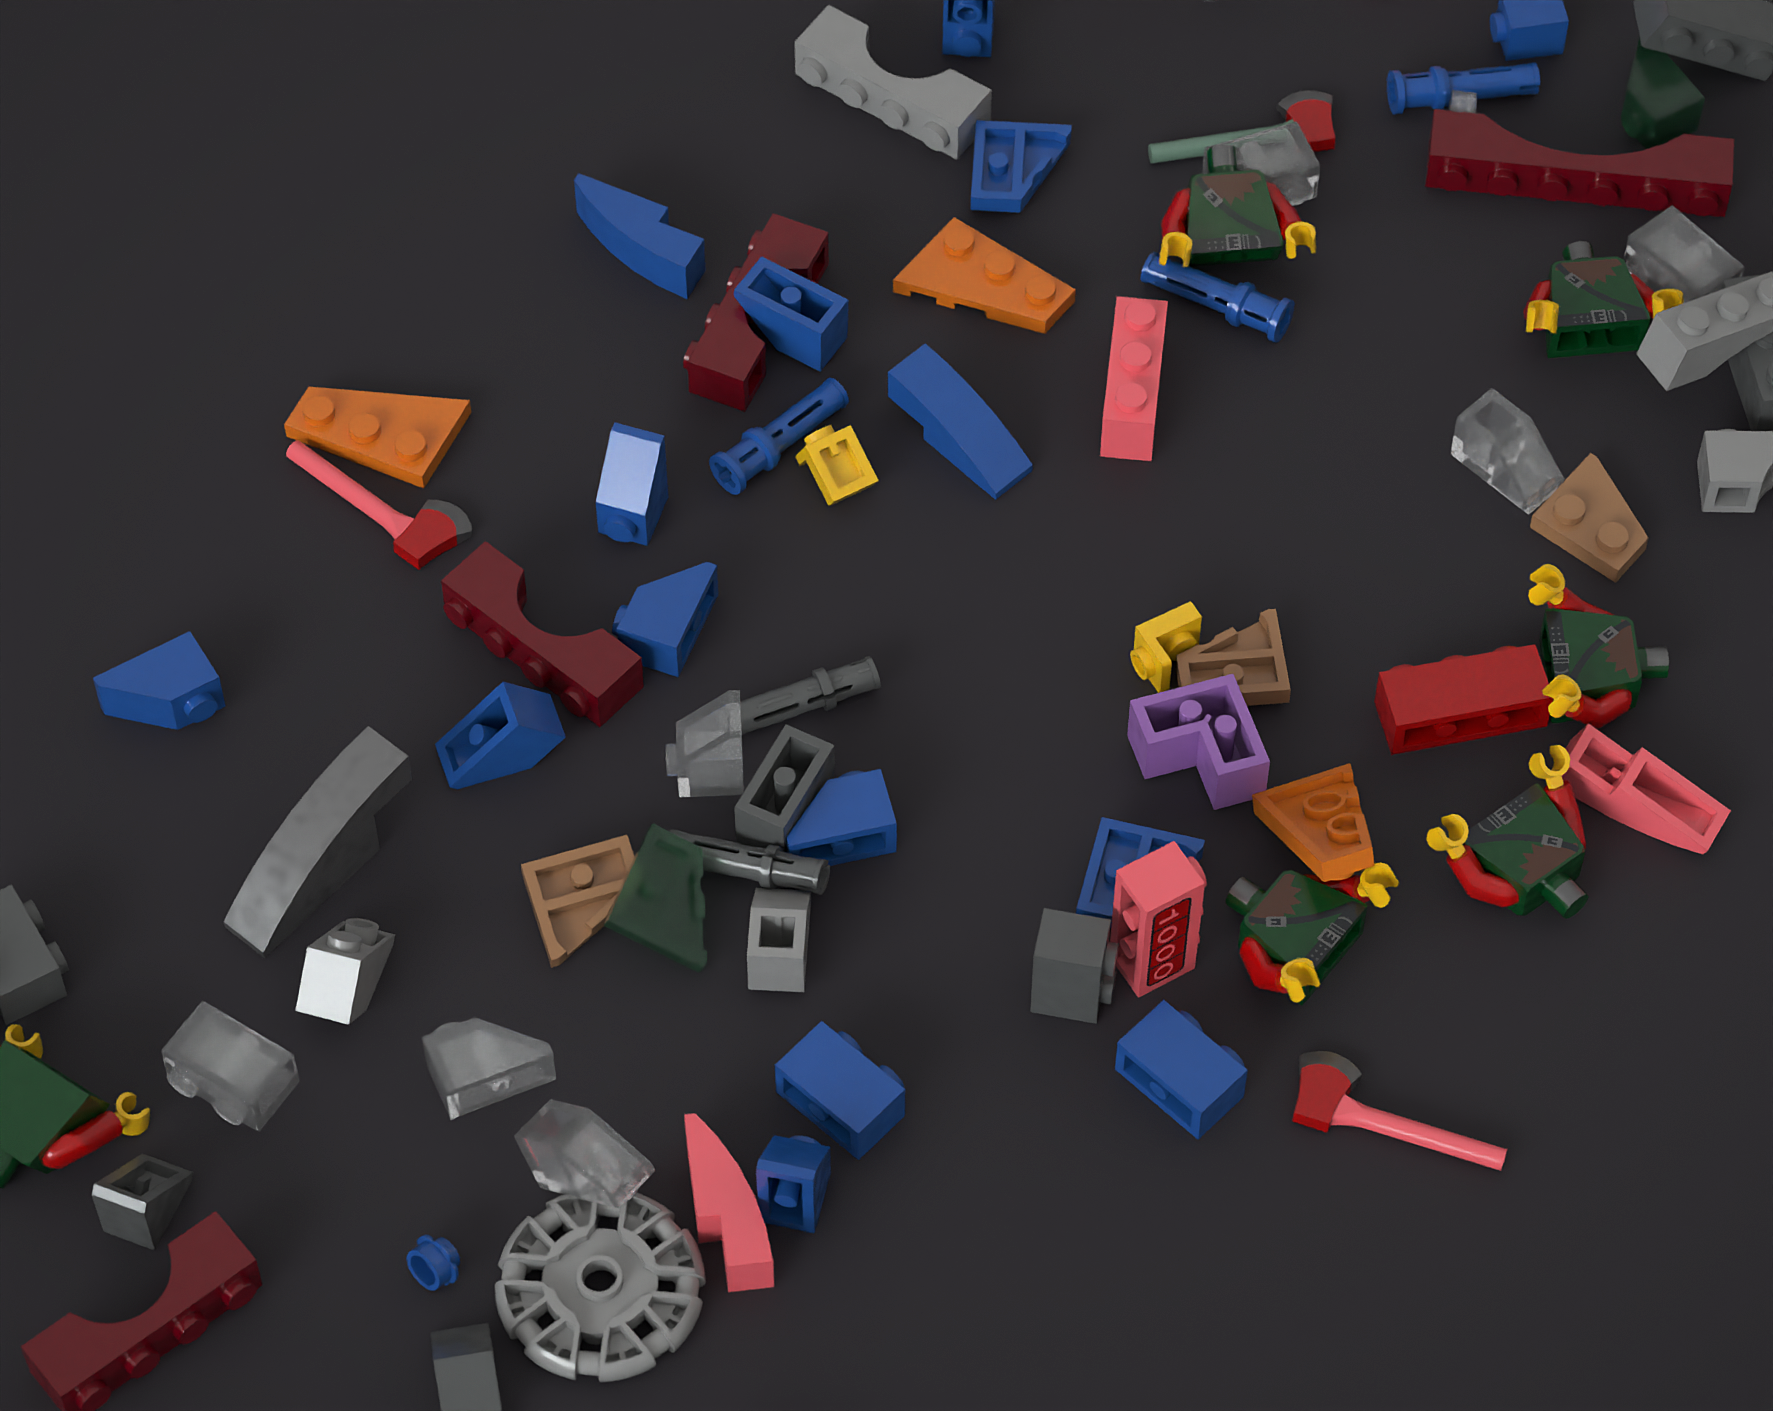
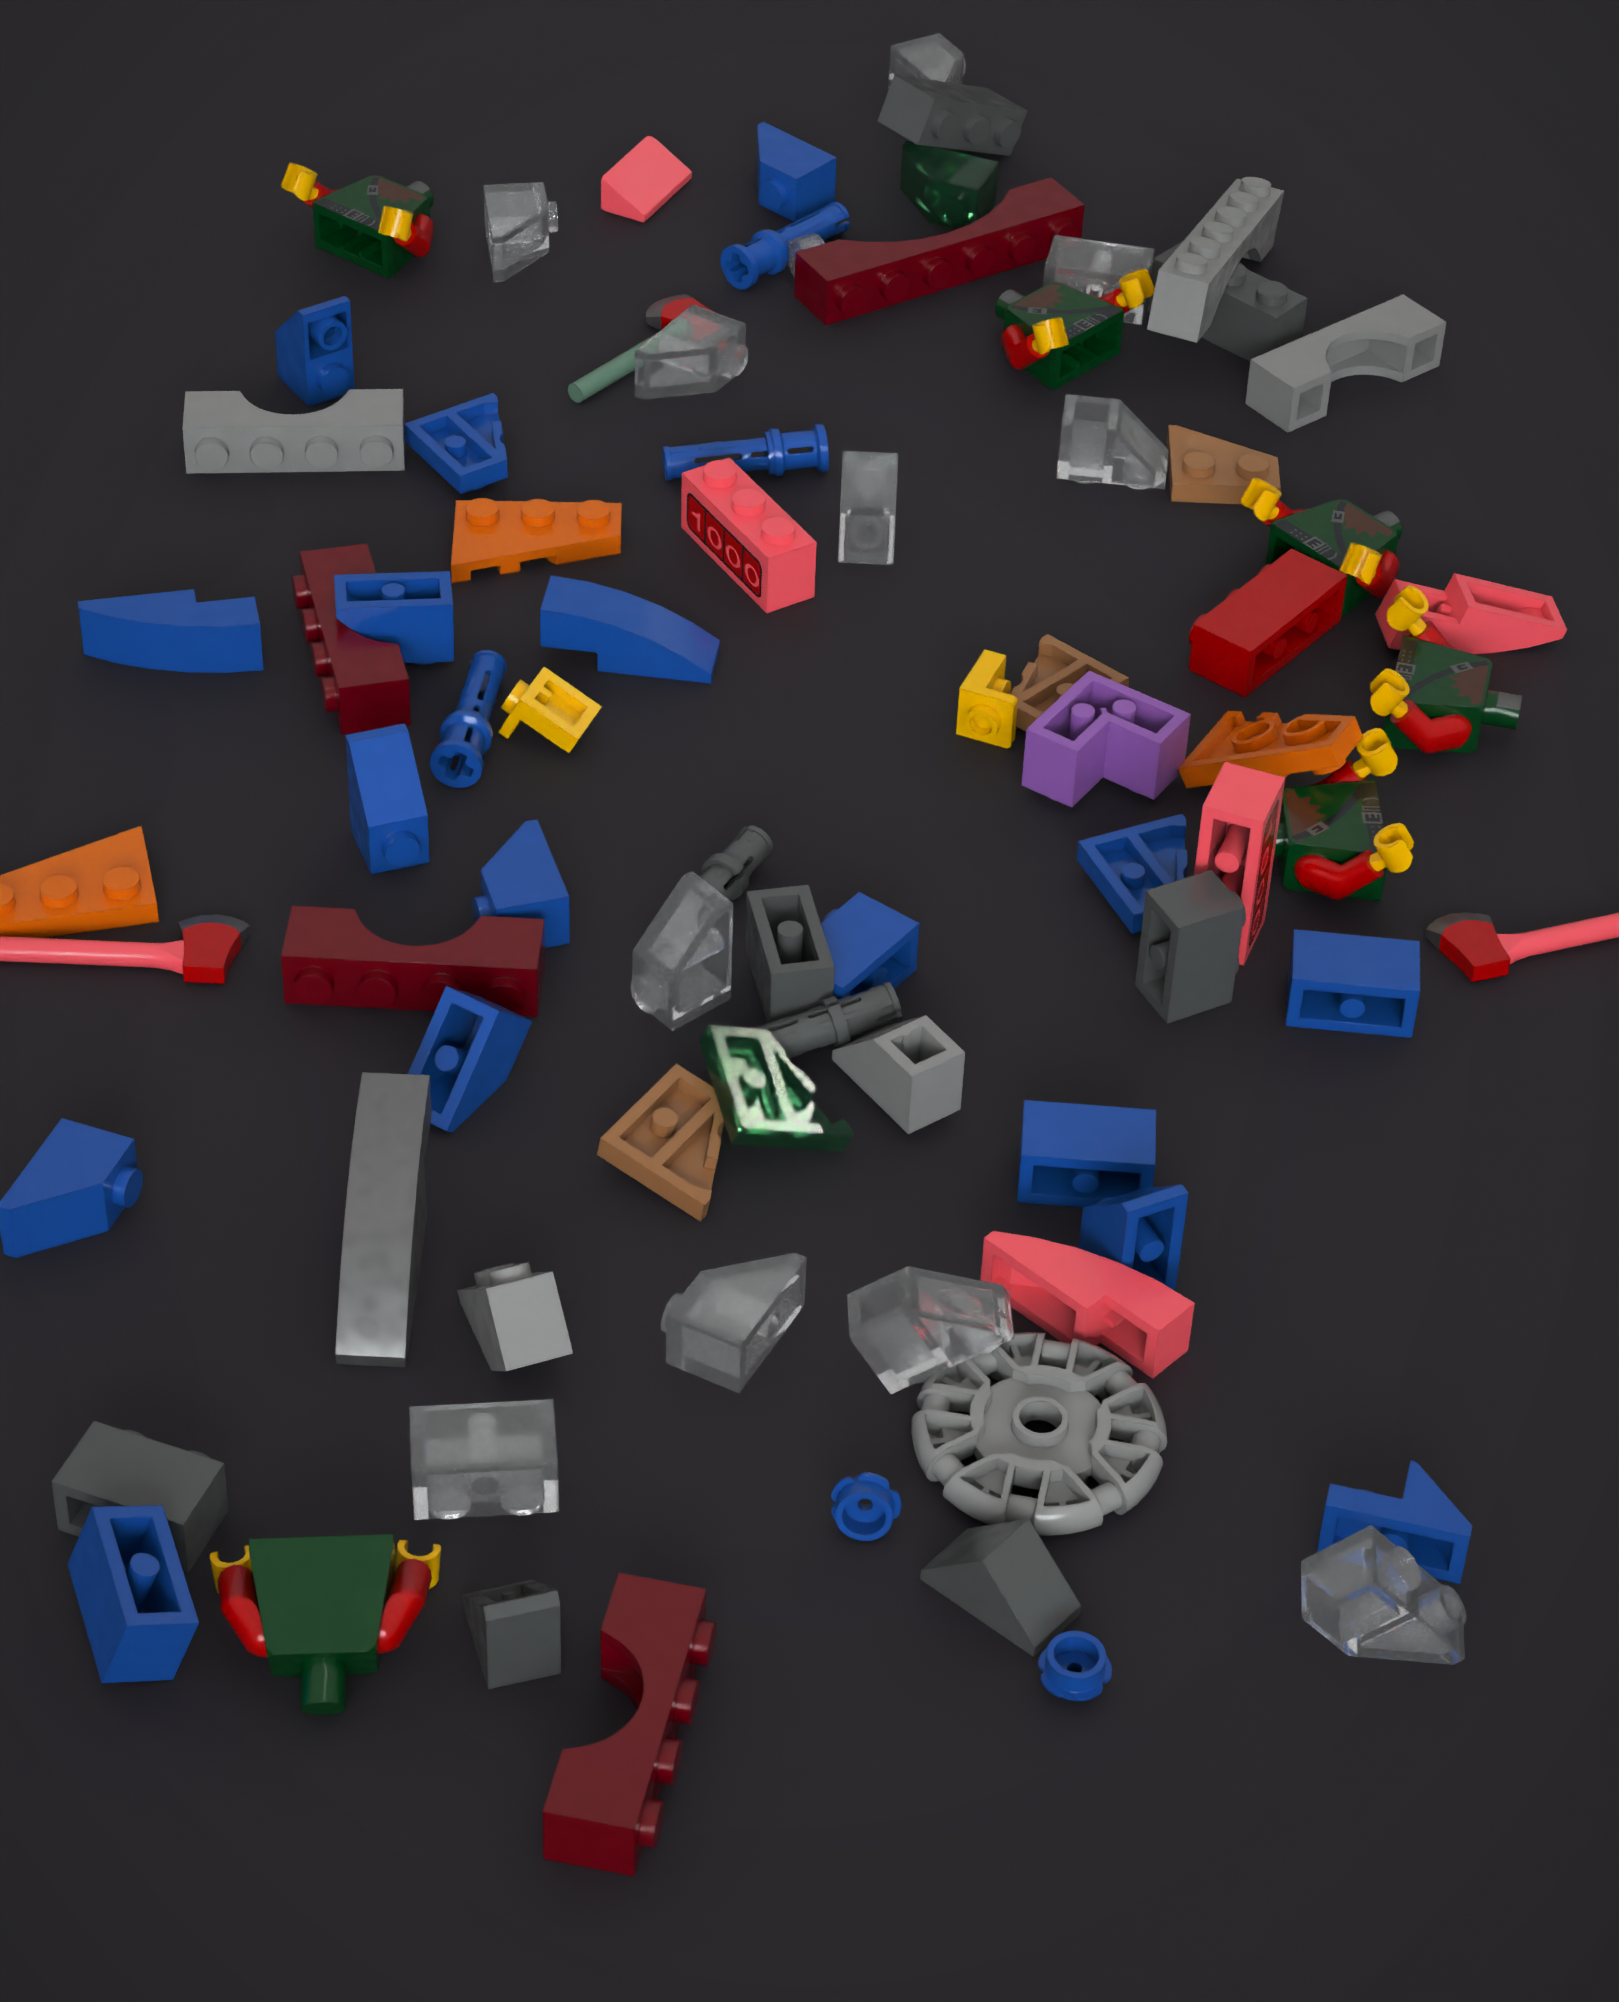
camera: 40 degrees left, 15 degrees down
(1231, 217) = (712, 390): torso -> none
(1254, 404) = (868, 508): none -> clear slope

